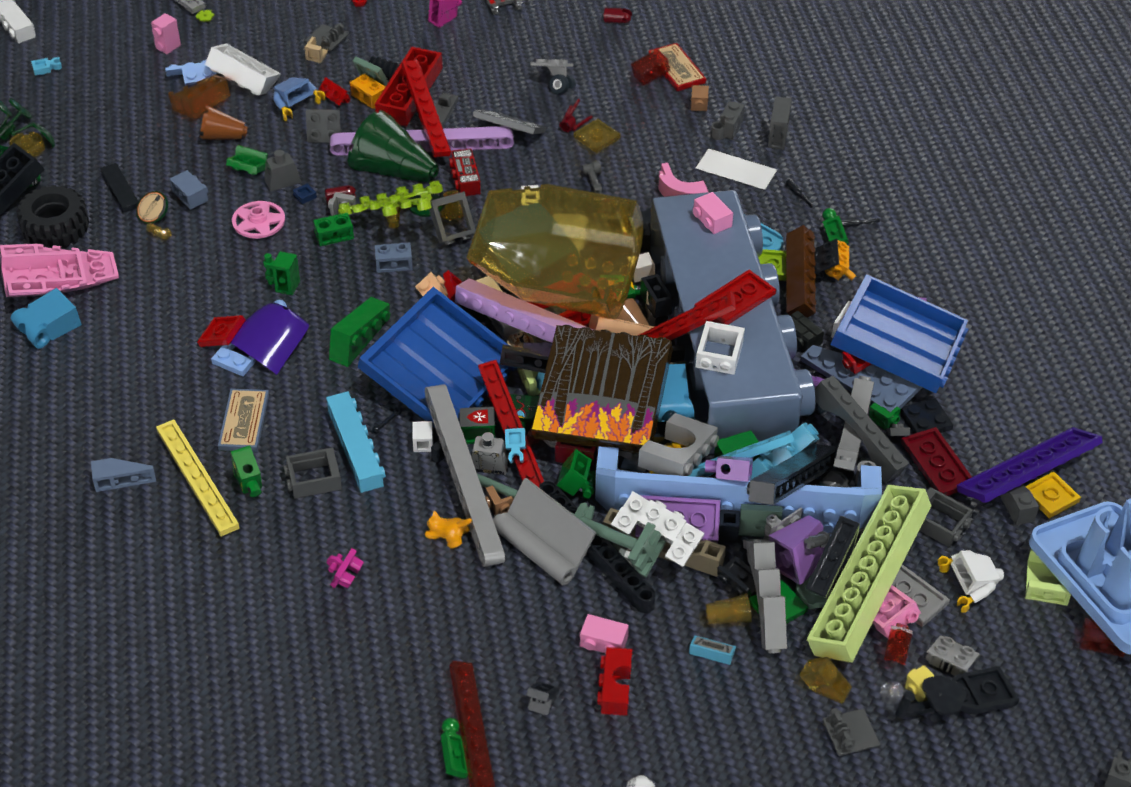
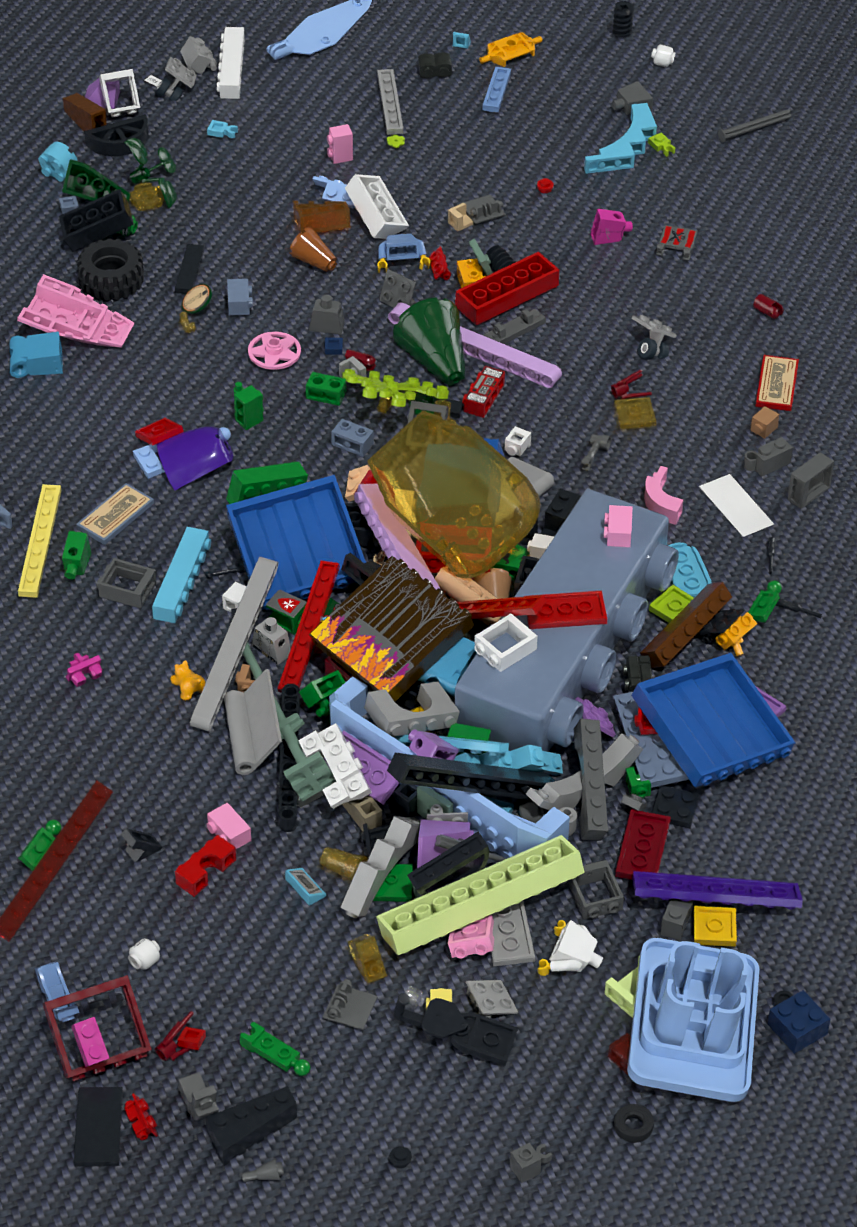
camera: 35 degrees right, 0 degrees up
(248, 160) = (308, 292): green bracket -> none
(426, 109) = (495, 315): red plate -> none
(508, 121) = (565, 363): dark grey tile -> none
(515, 440) = (296, 639): medium azure plate -> none
(650, 67) = (745, 371): clear red brick -> none
(898, 643) = (448, 963): clear red hips -> none

